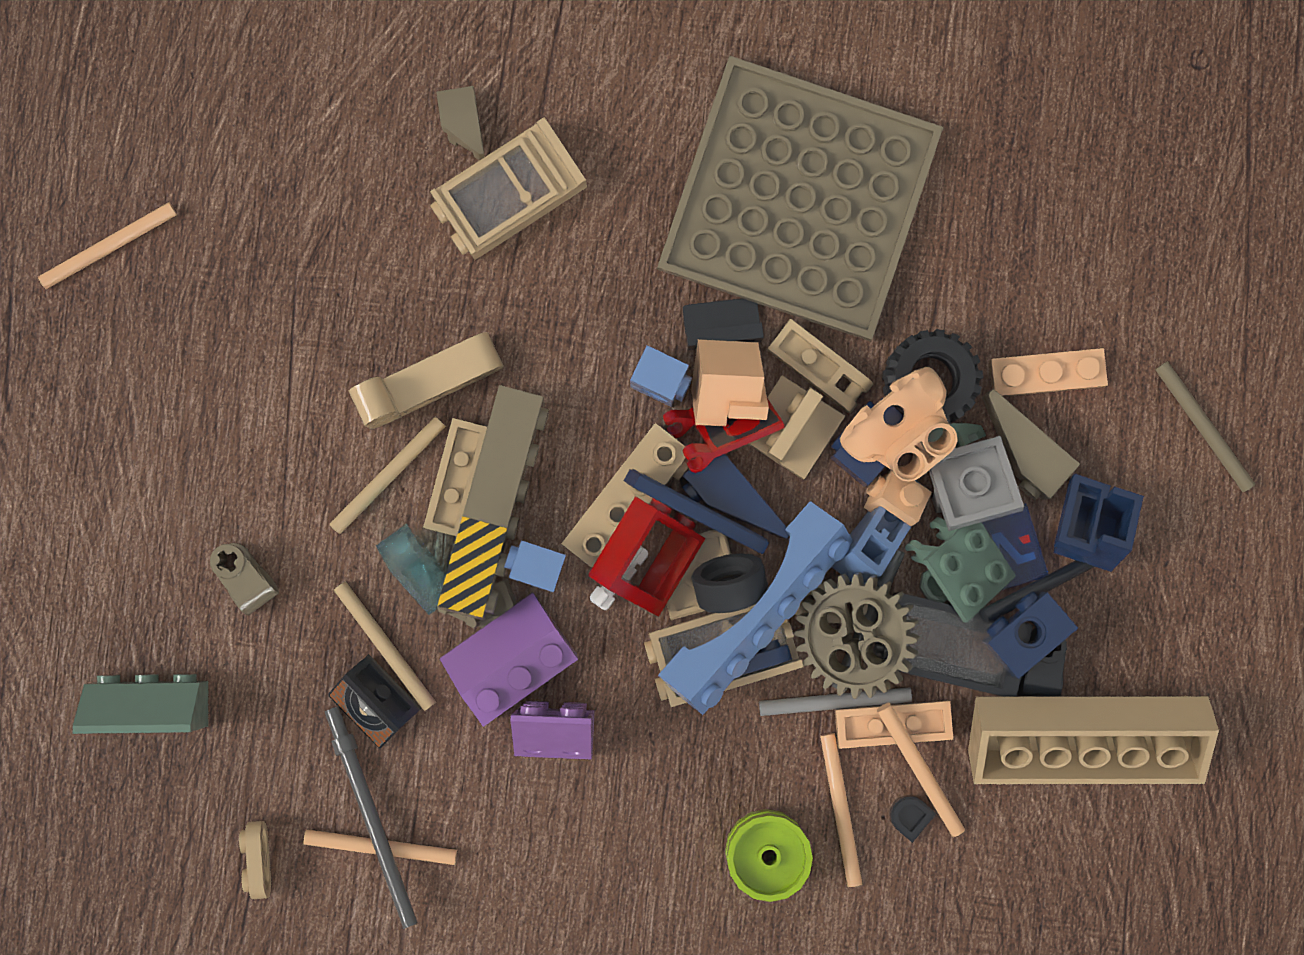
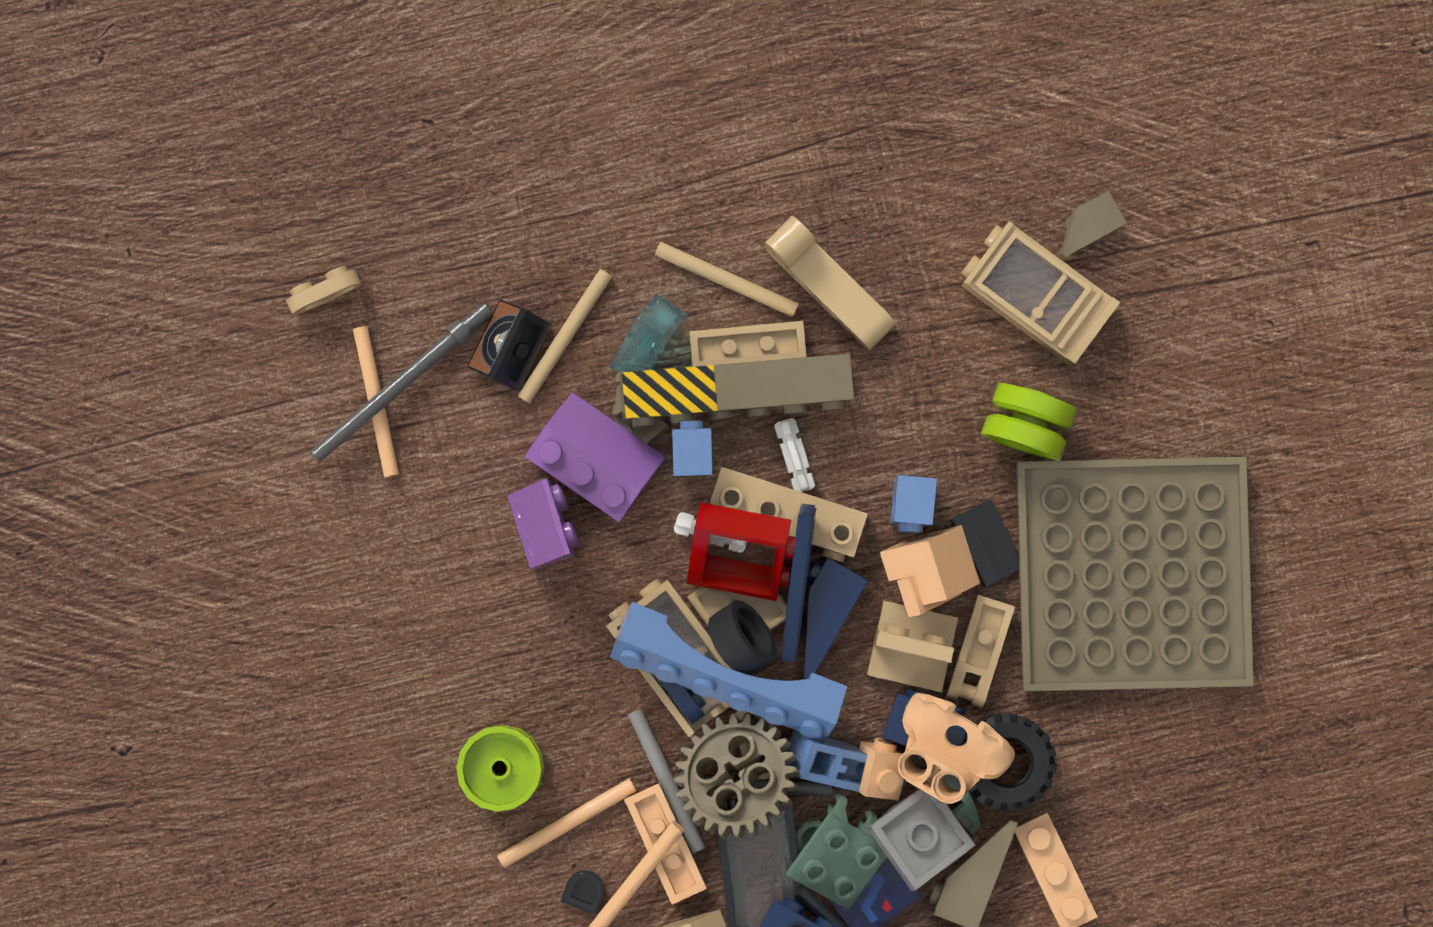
camera: 75 degrees right, 0 degrees up
(142, 705) = (429, 132): sand green slope -> none
(248, 583) = (576, 186): dark tan piece -> none
(575, 471) = (794, 455): none -> white axle
(620, 240) = (1031, 415): none -> lime wheel
(719, 438) = (875, 580): red flag -> none

